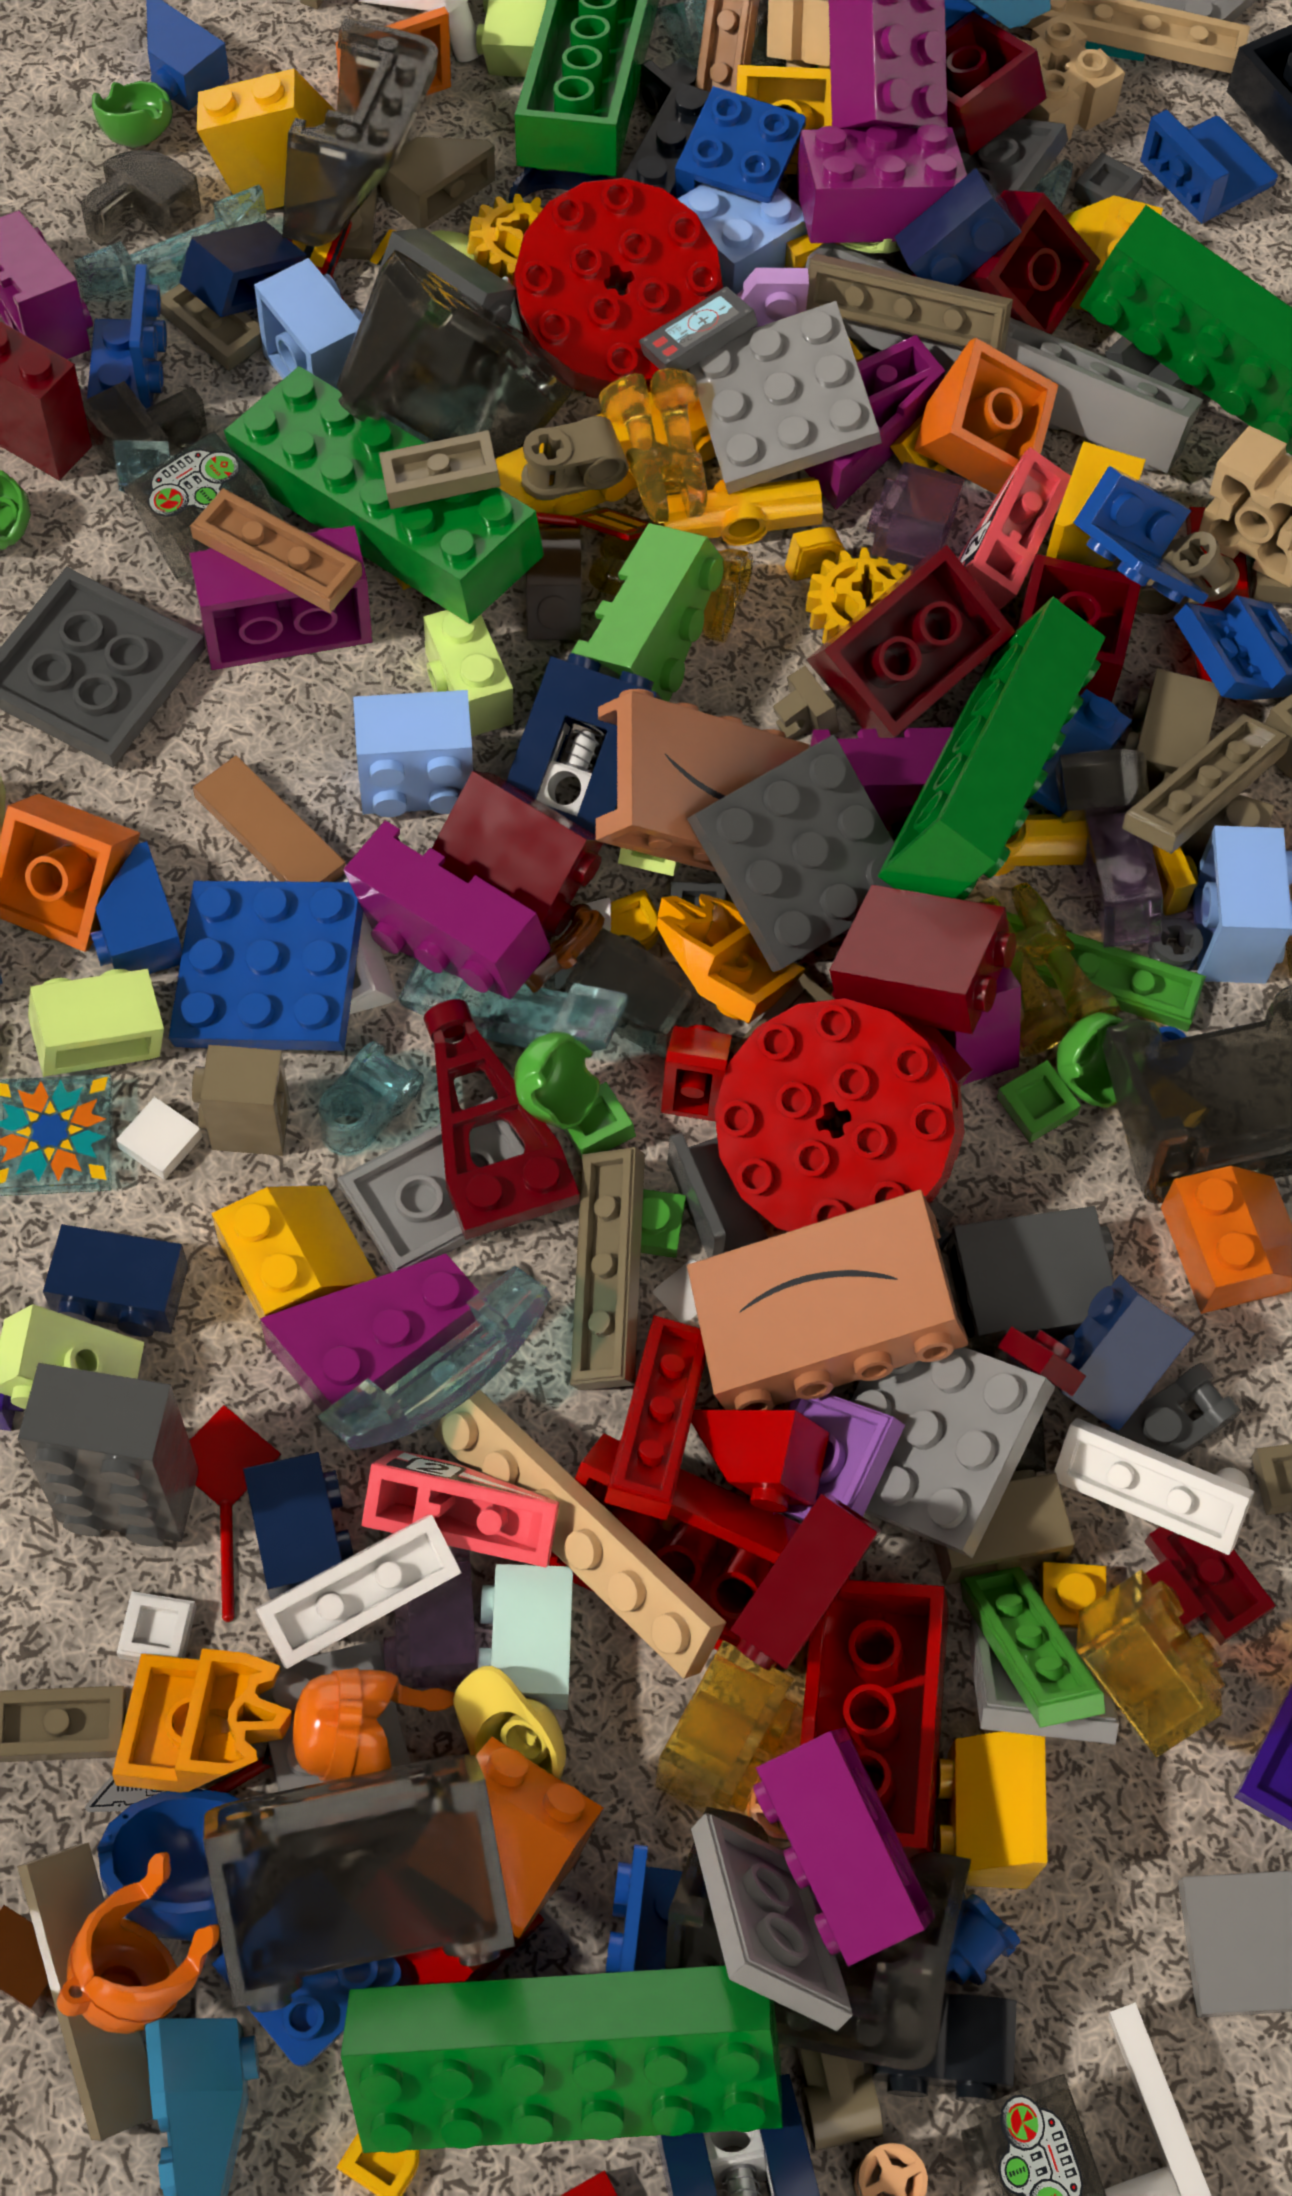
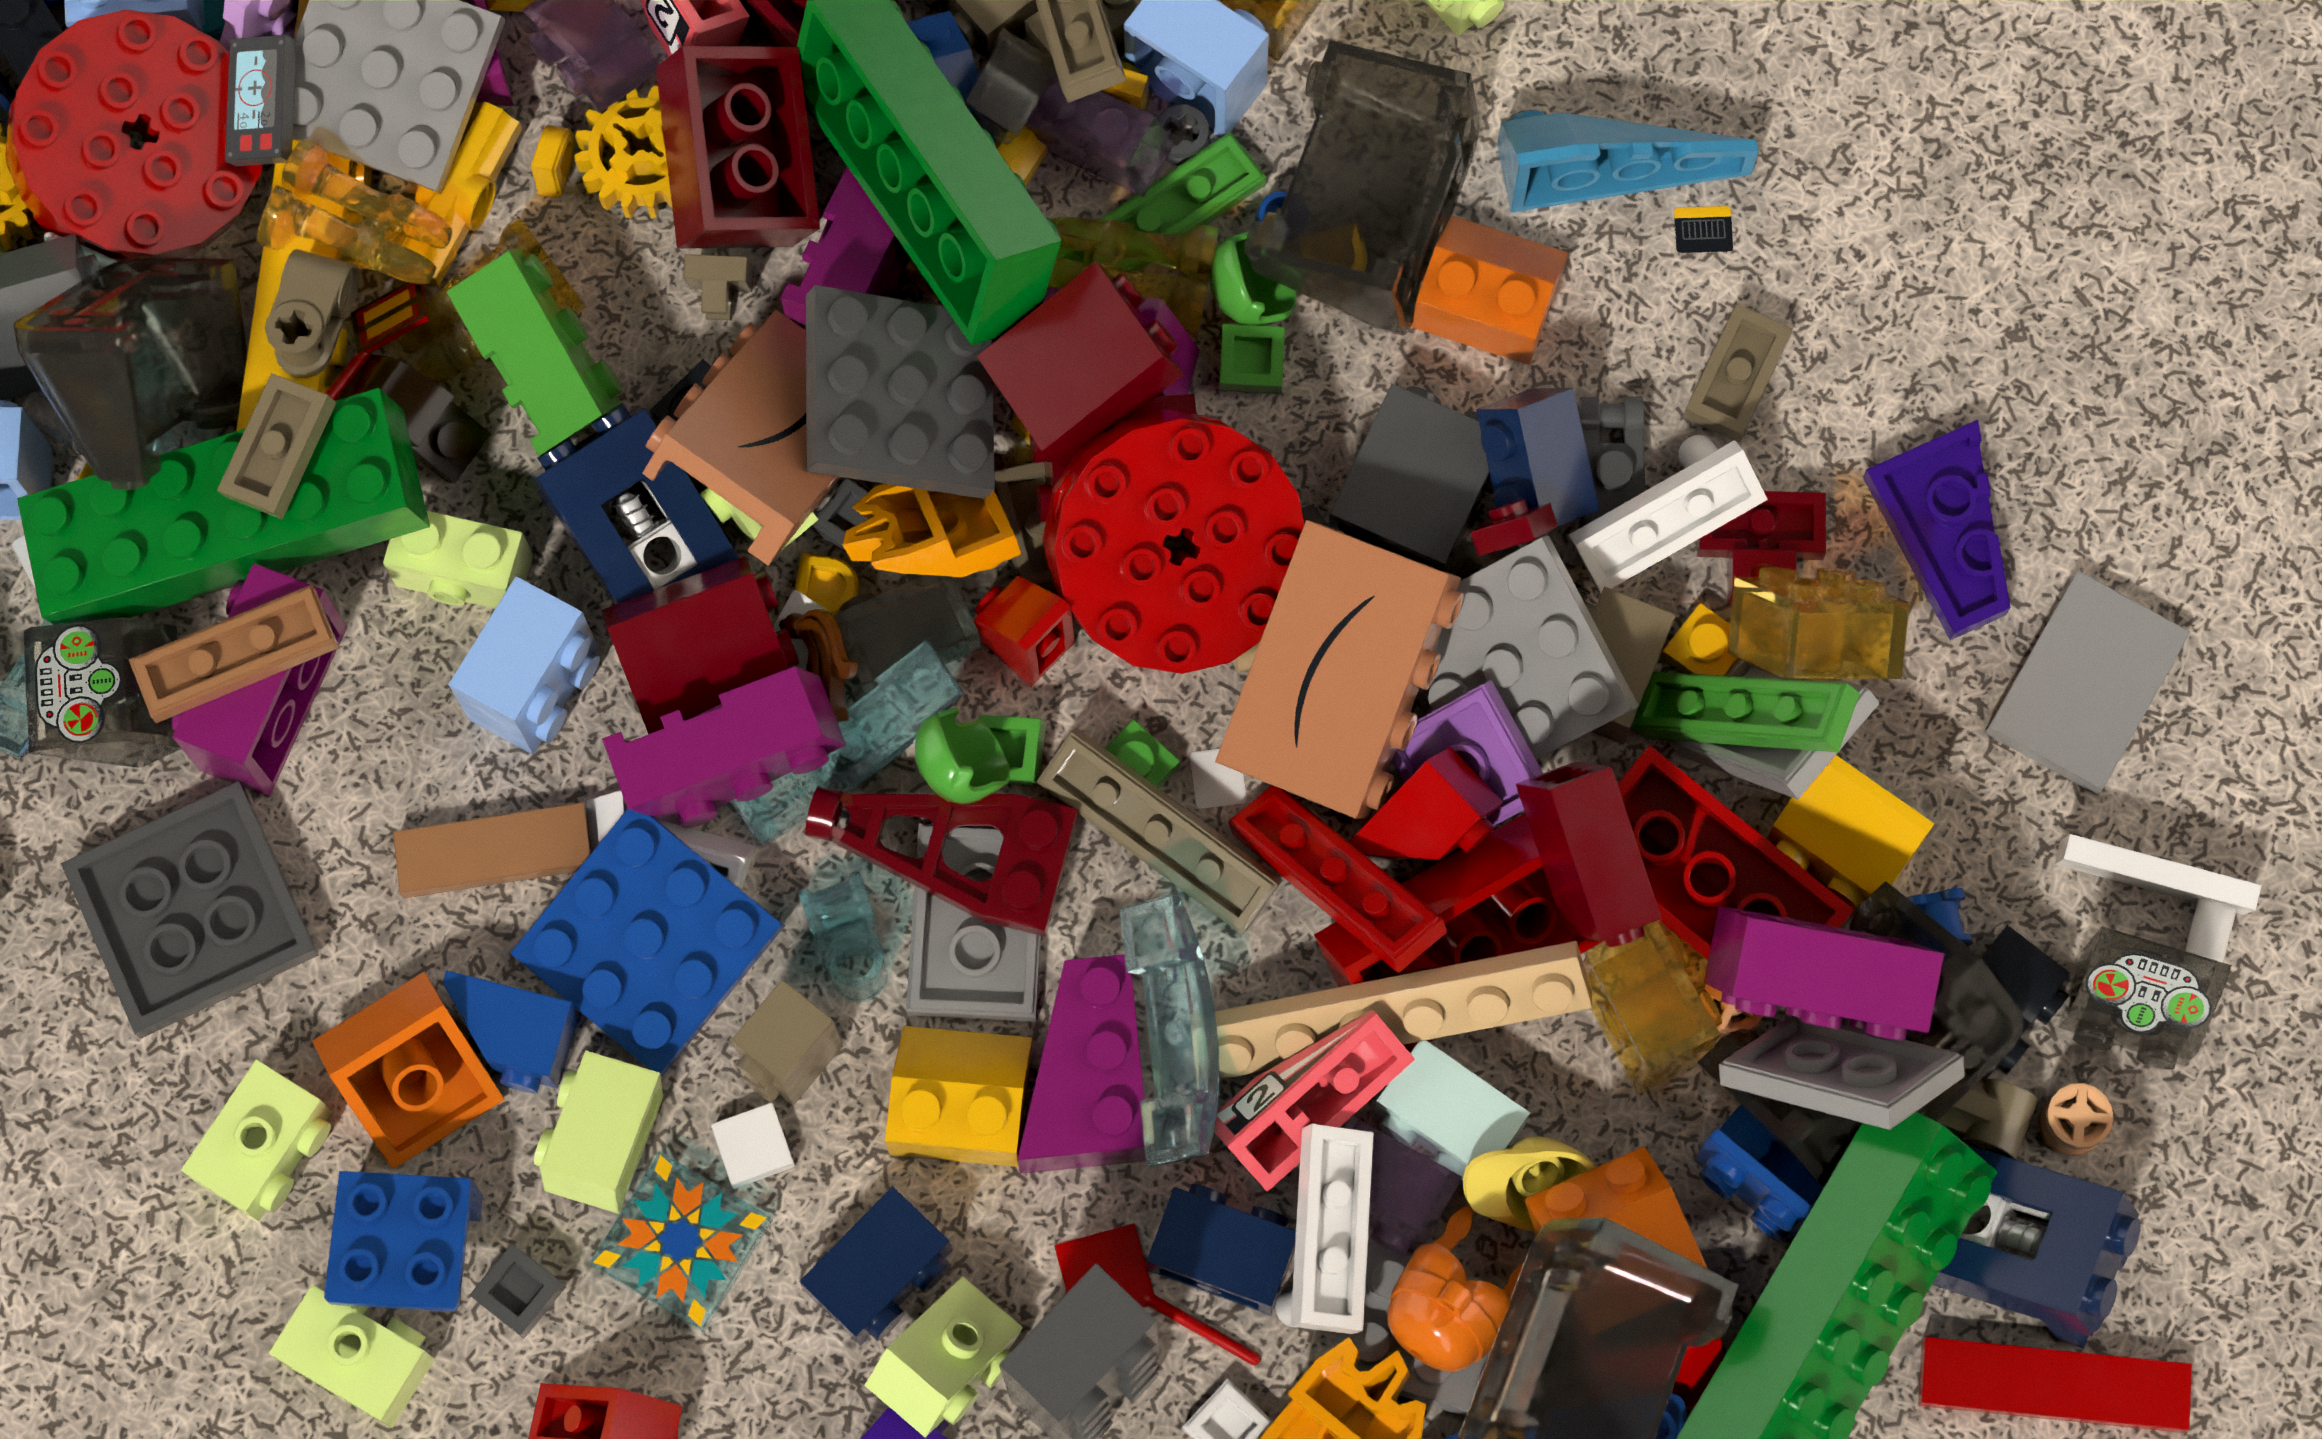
camera: 50 degrees left, 10 degrees up
(711, 1198) = (1151, 697): dark grey panel -> none

